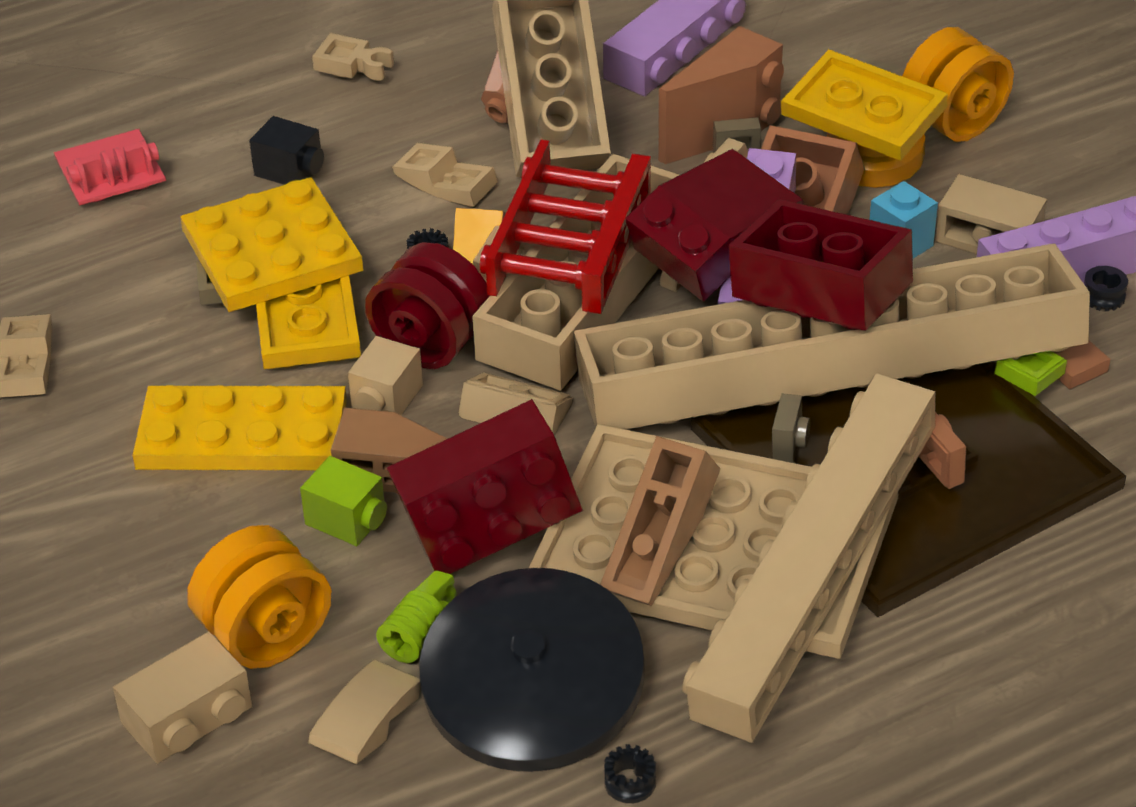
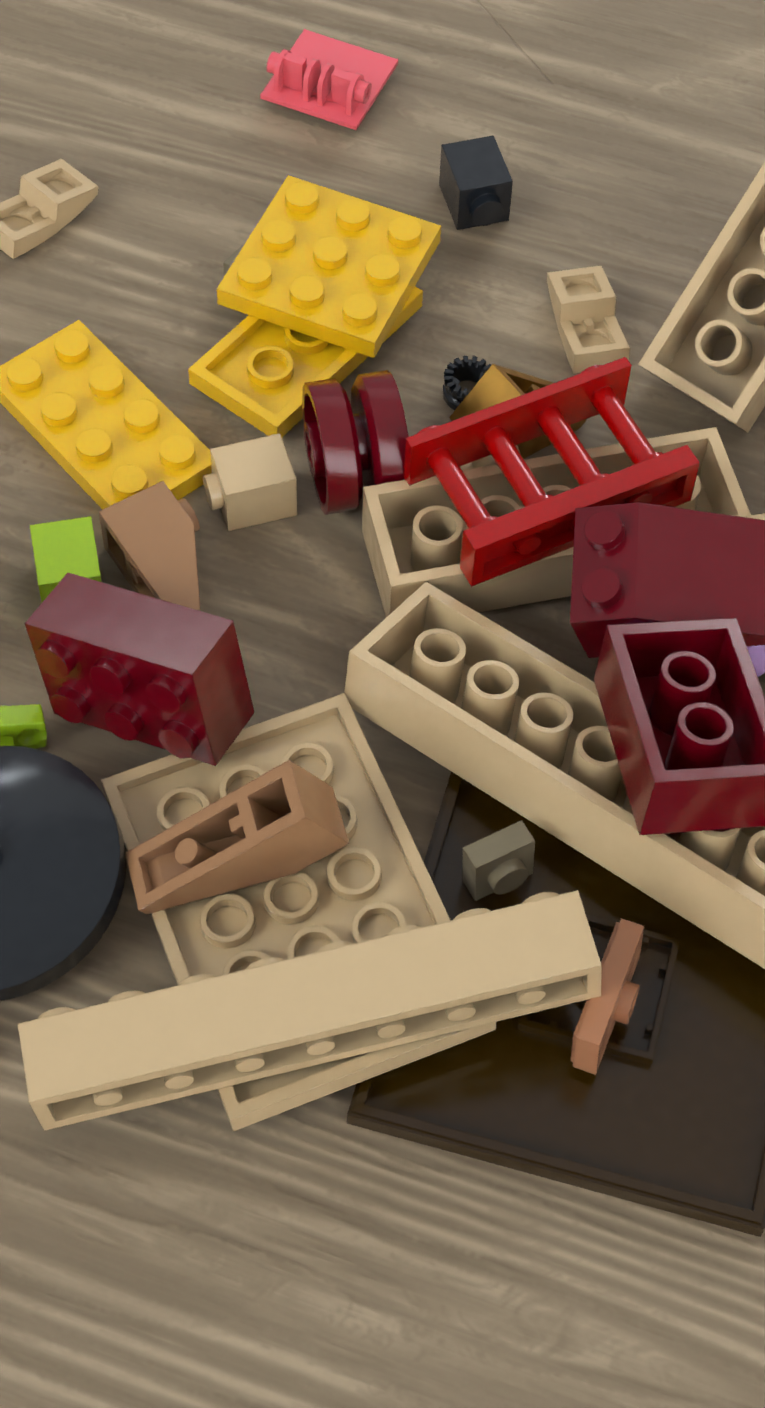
camera: 45 degrees right, 15 degrees up
(348, 55) = (663, 123): tan plate -> none
(492, 395) = (331, 600): tan slope -> none

